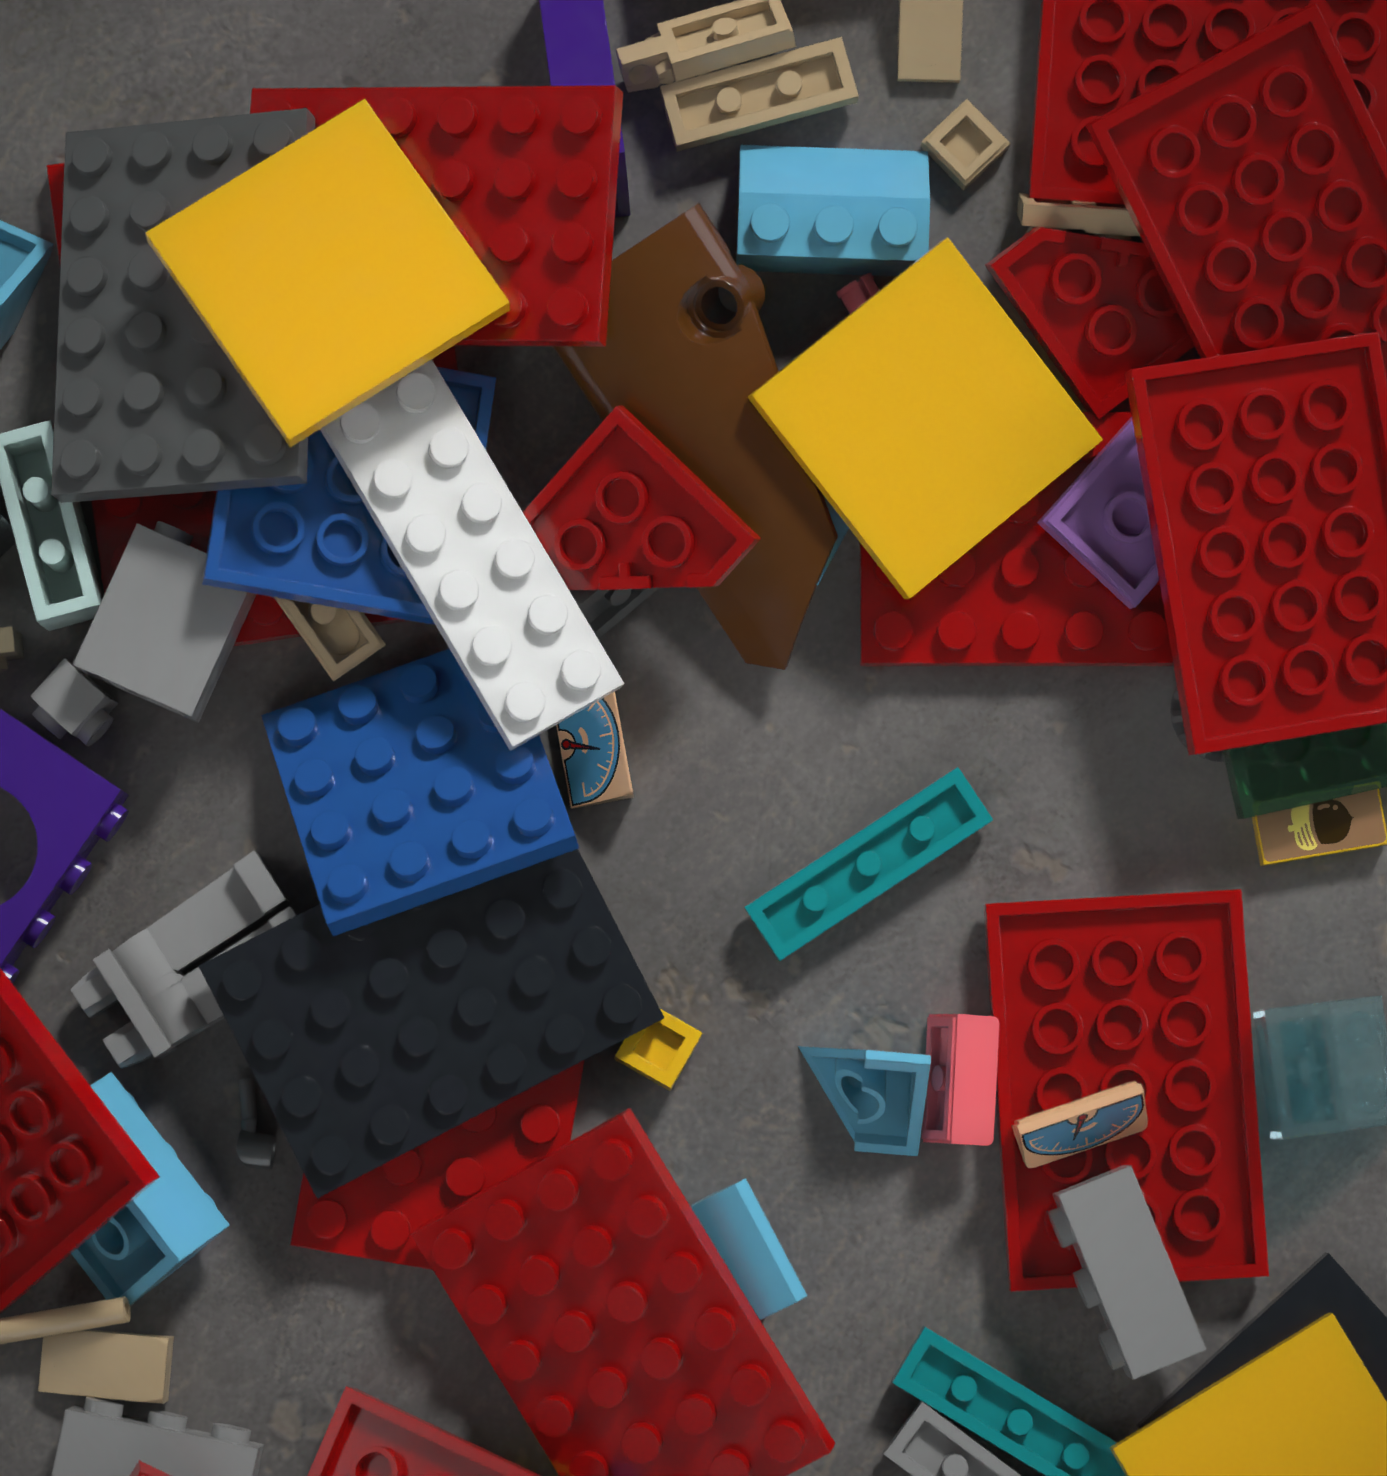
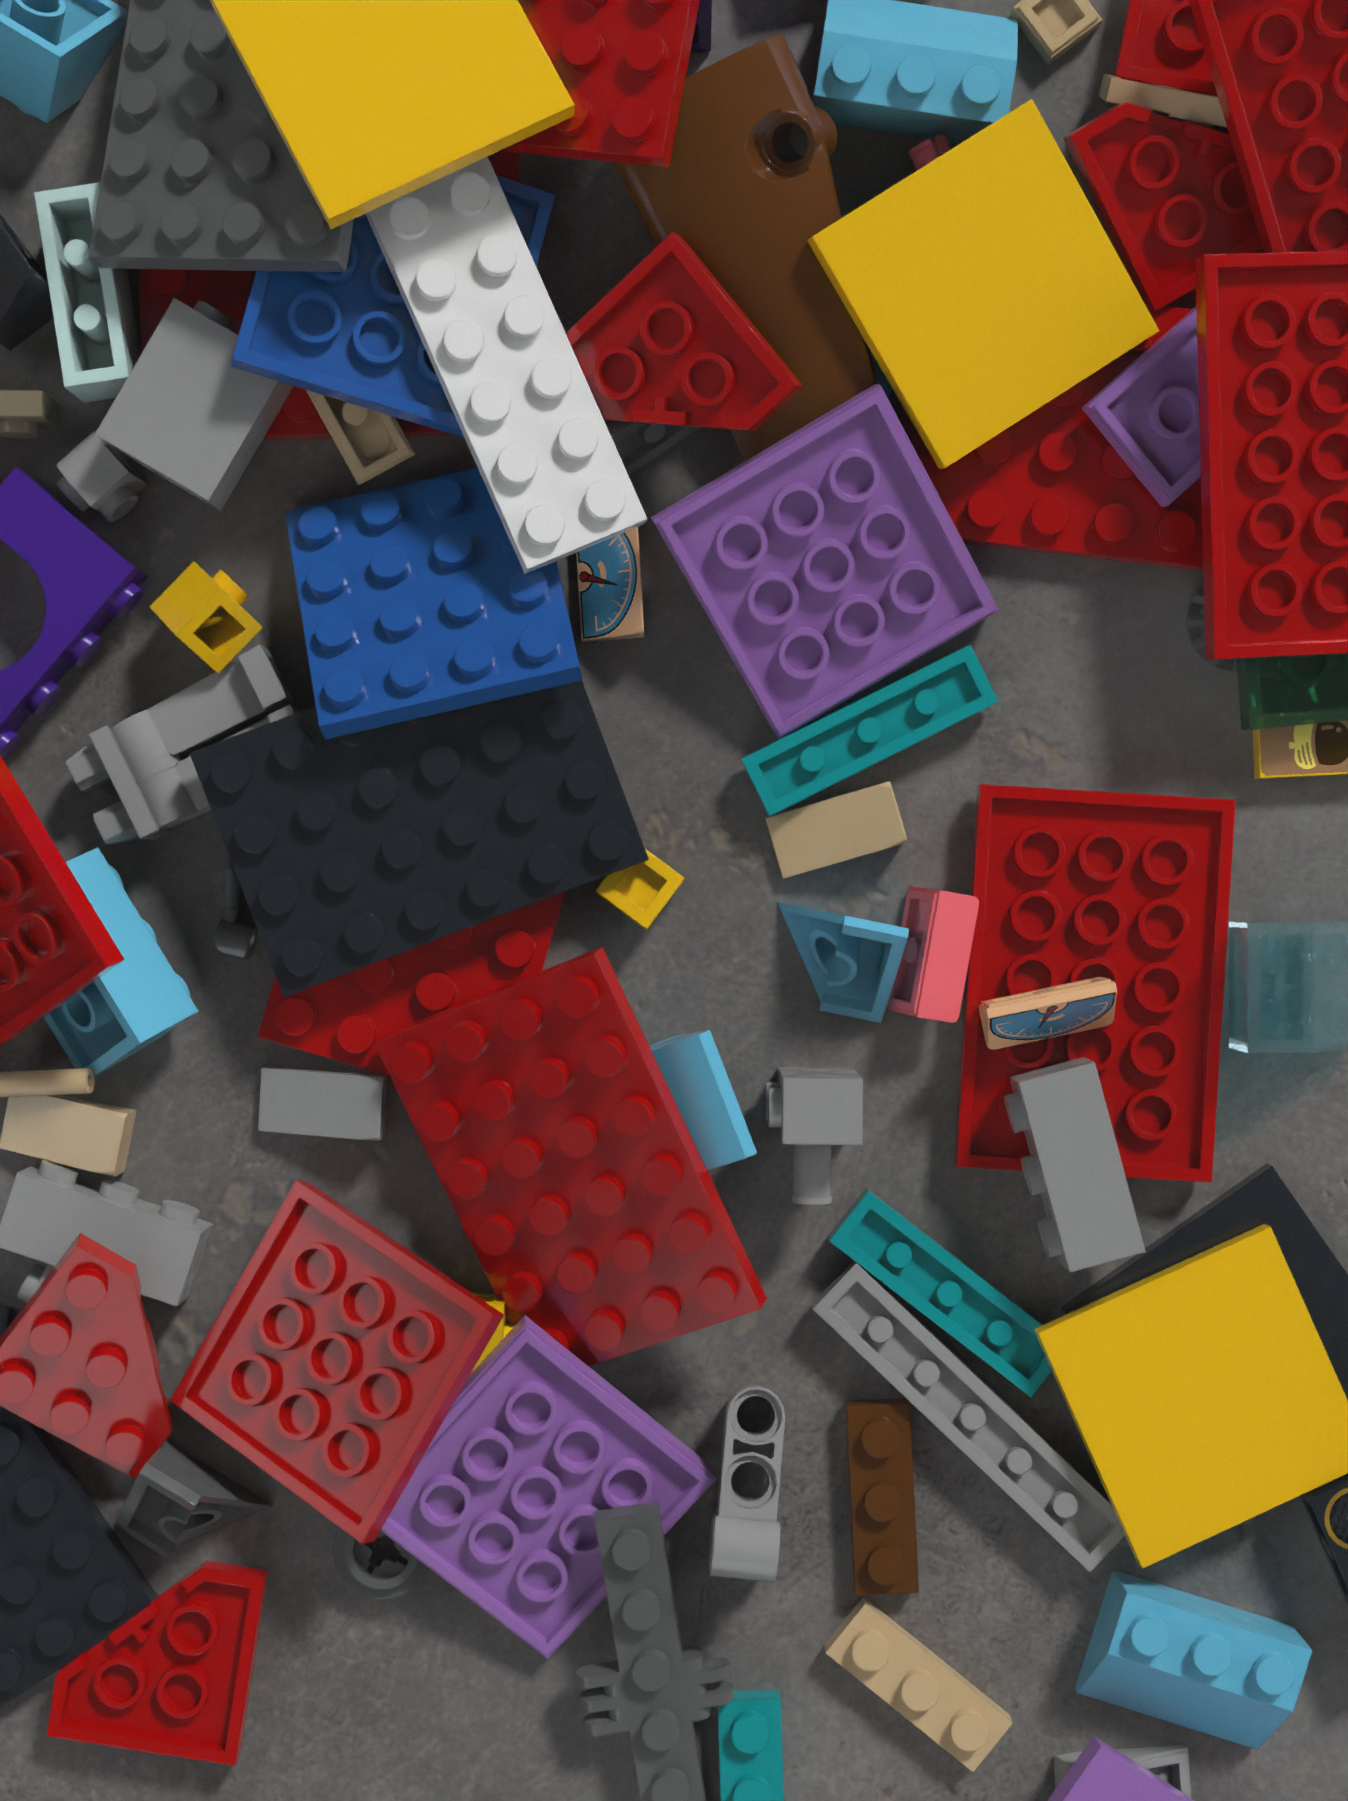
camera: 10 degrees right, 5 degrees up
(197, 827) = (207, 615): none -> yellow brick
(363, 1305) = (323, 1103): none -> light grey slope
(805, 704) = (826, 561): none -> medium lavender tile
(848, 966) = (836, 829): none -> tan slope
(859, 1254) = (813, 1113): none -> light grey brick

